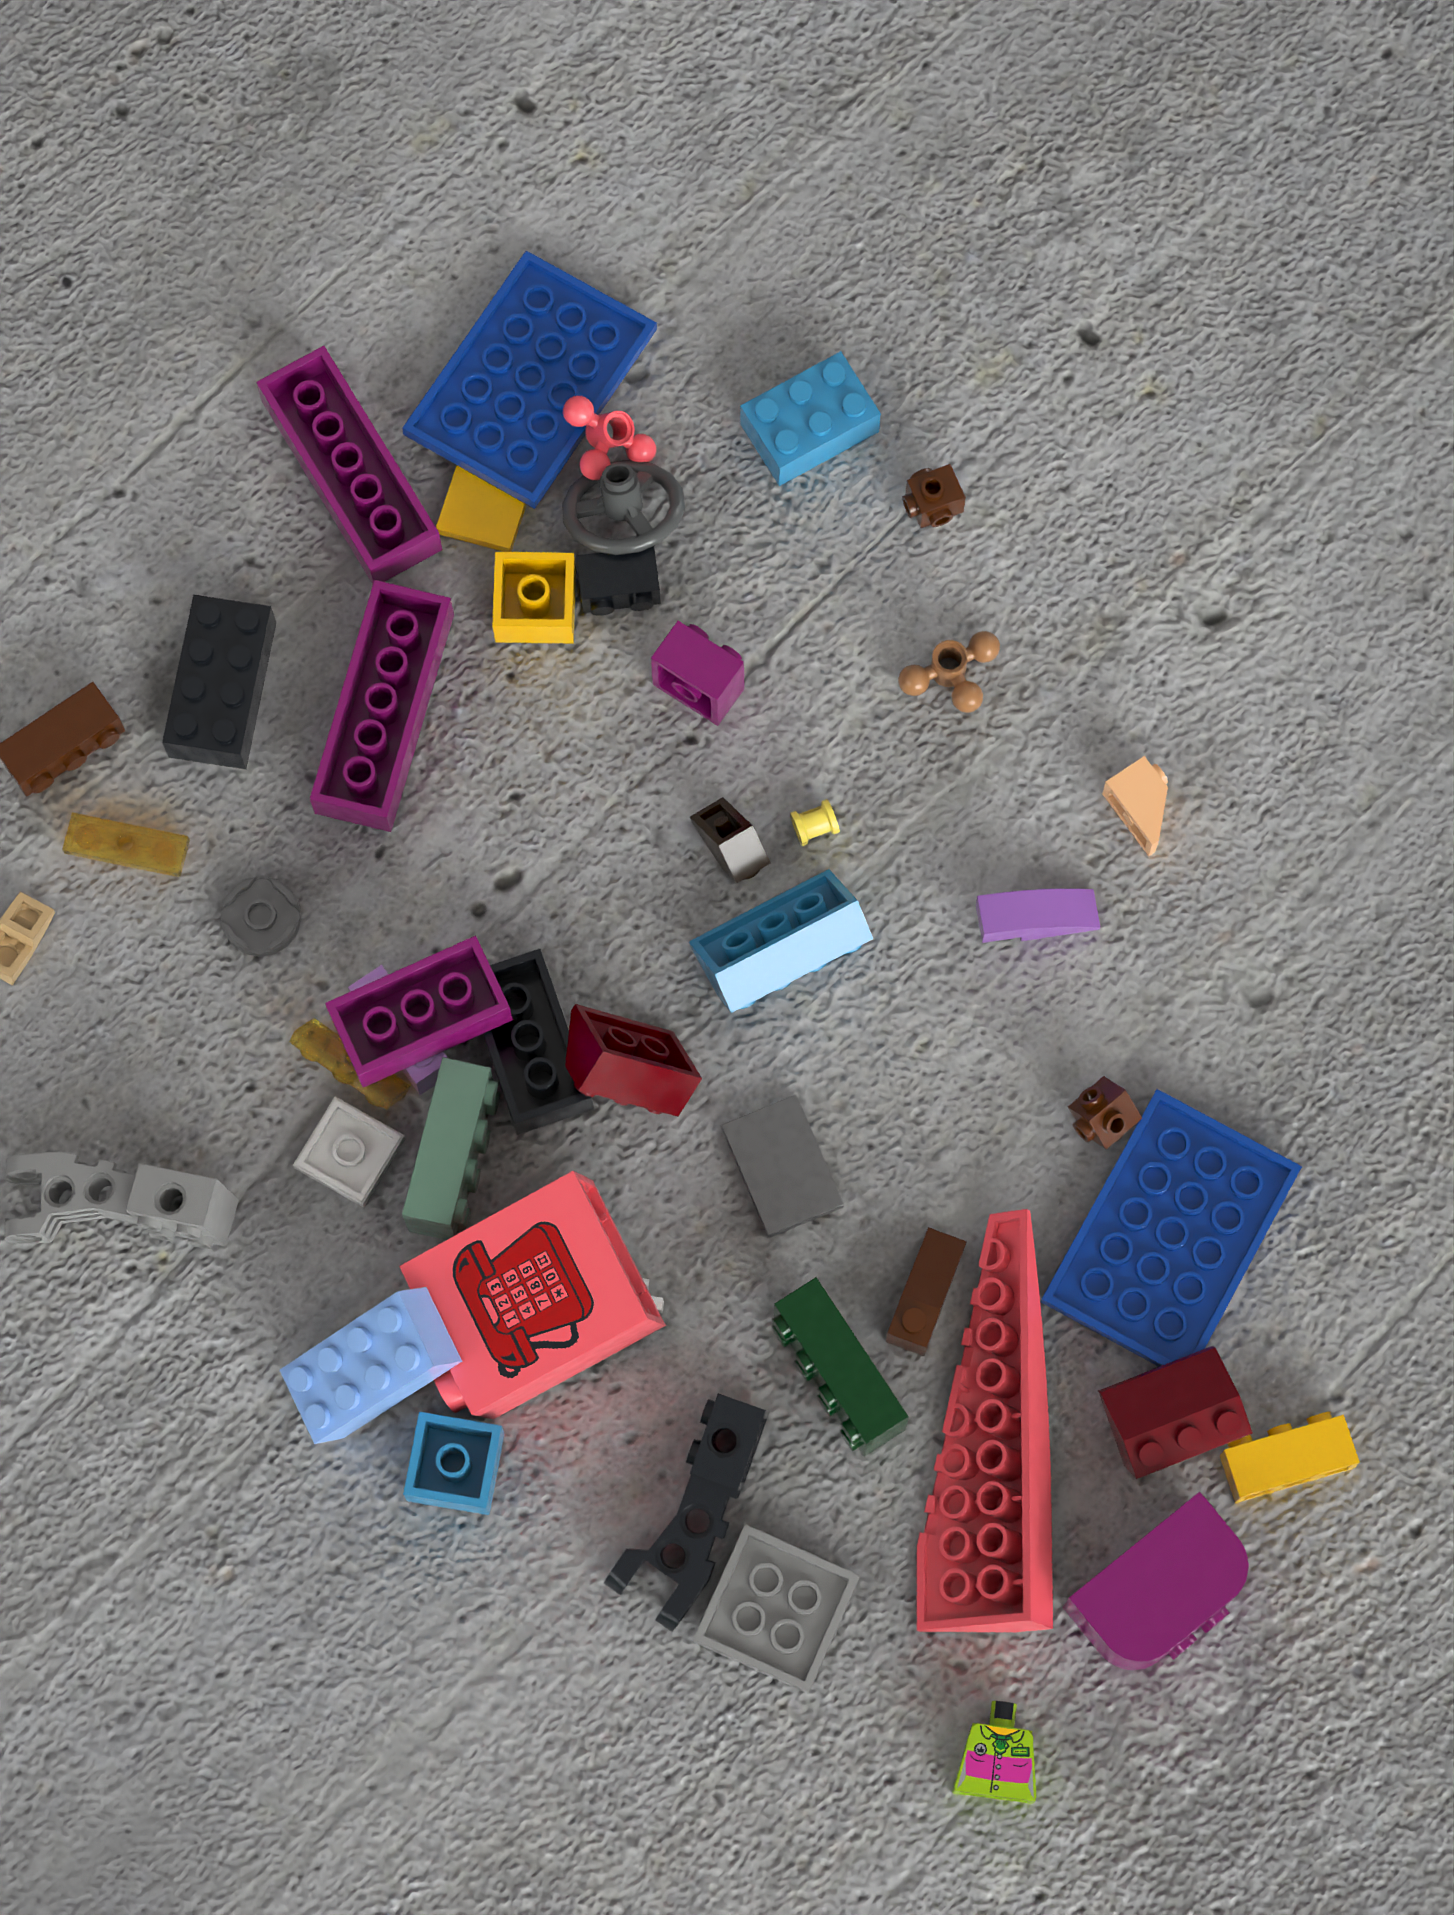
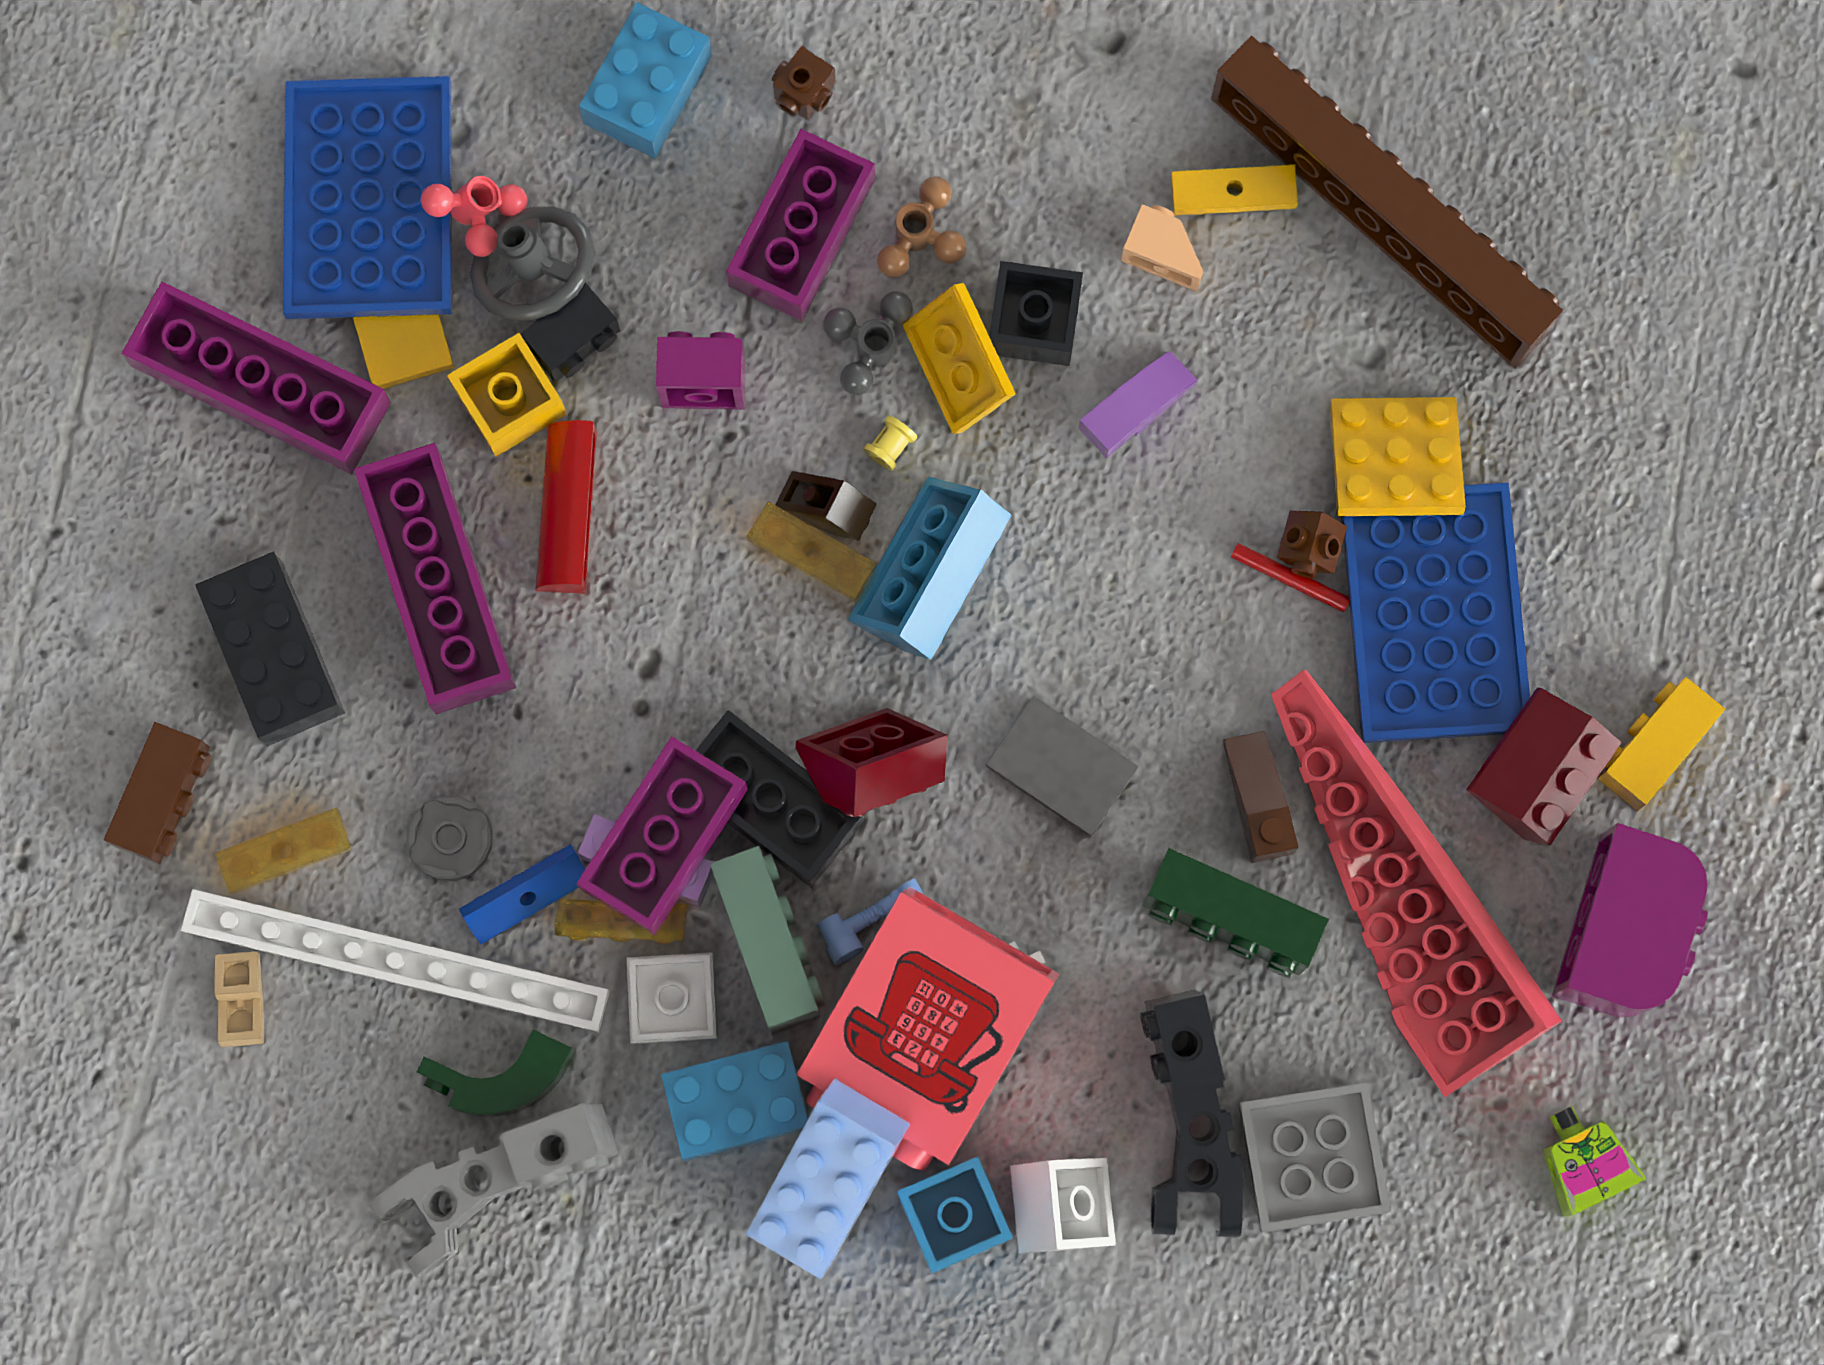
camera: 35 degrees left, 5 degrees up
(155, 985) = (395, 960): none -> white plate
(182, 1143) = (518, 1088): none -> dark green arch
(283, 995) = (523, 894): none -> blue tile
(340, 1260) = (735, 1101): none -> dark azure brick
(516, 1185) = (841, 934): none -> light blue brick
(525, 715) = (566, 507): none -> red brick
(547, 1513) = (1062, 1205): none -> white slope
(685, 849) = (790, 537): none -> clear yellow tile
(837, 705) = (841, 324): none -> dark grey piece
(857, 605) = (801, 224): none -> magenta brick
(912, 788) = (958, 358): none -> yellow tile
(999, 790) = (1035, 313): none -> black brick
(1064, 1123) = (1283, 574): none -> red bar
(1210, 779) = (1258, 187): none -> yellow tile
(1222, 1088) = (1397, 456): none -> yellow plate
(1348, 876) = (1385, 201): none -> reddish brown brick

